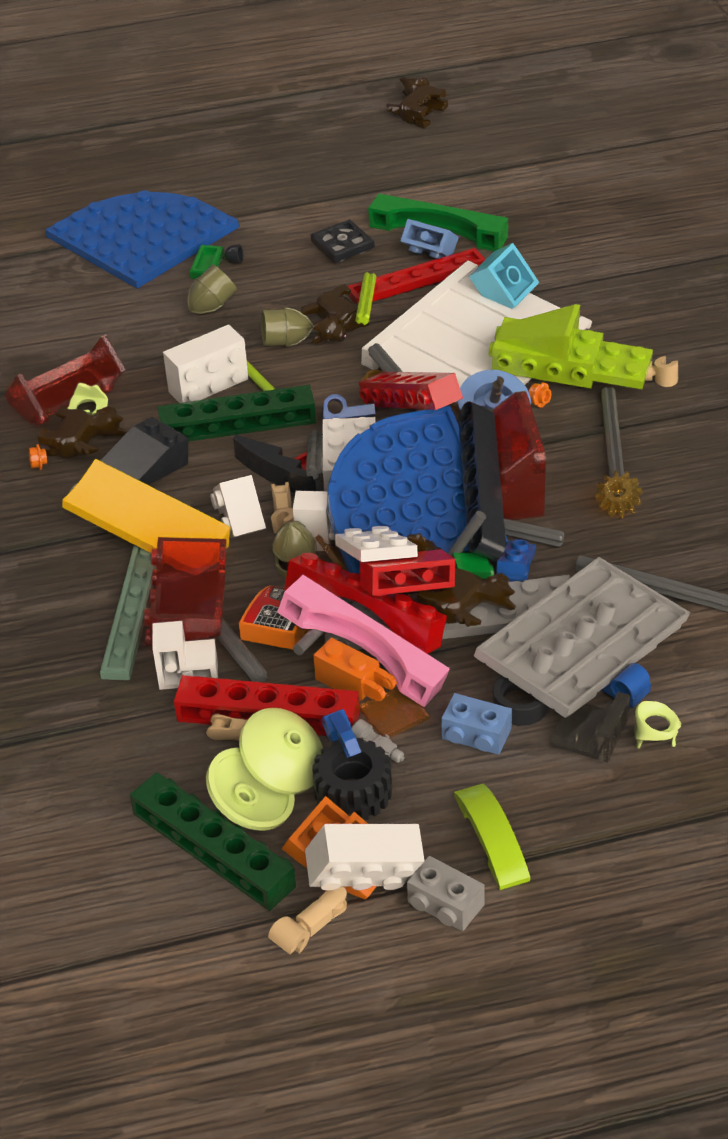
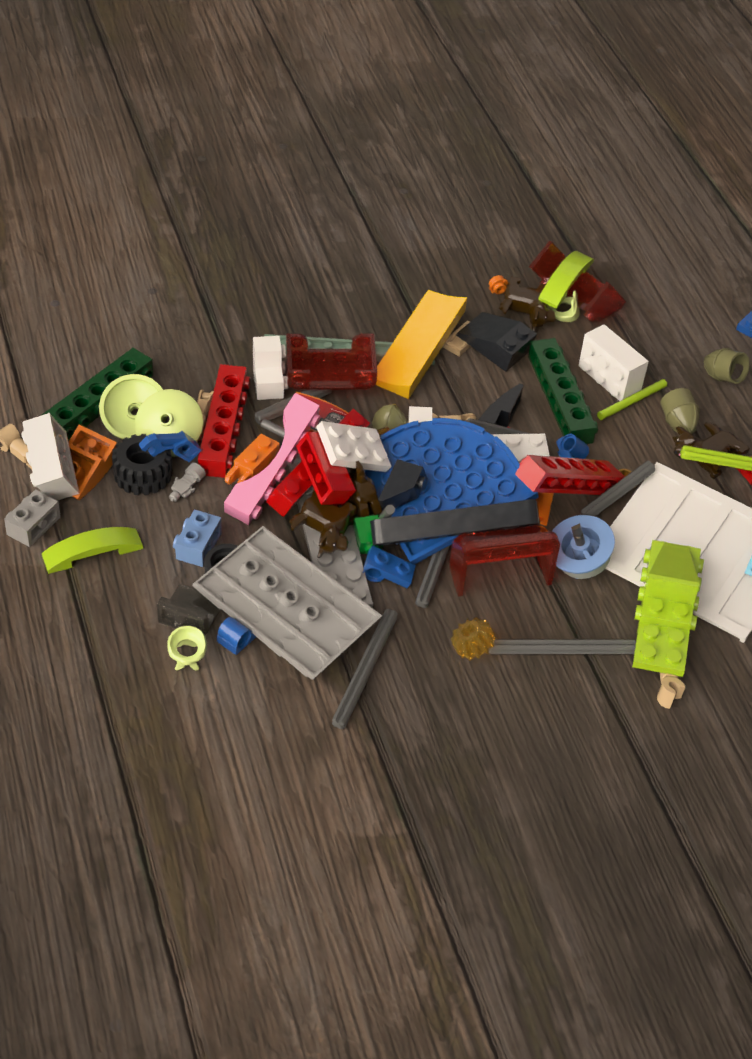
camera: 80 degrees right, 5 degrees up
(60, 381) = (564, 277): none -> lime slope
(239, 505) = (438, 387): white brick -> none
(394, 713) = (214, 495): clear orange piece -> none
(421, 515) = (403, 484): none -> black slope
(540, 394) = (621, 588): orange plate -> none

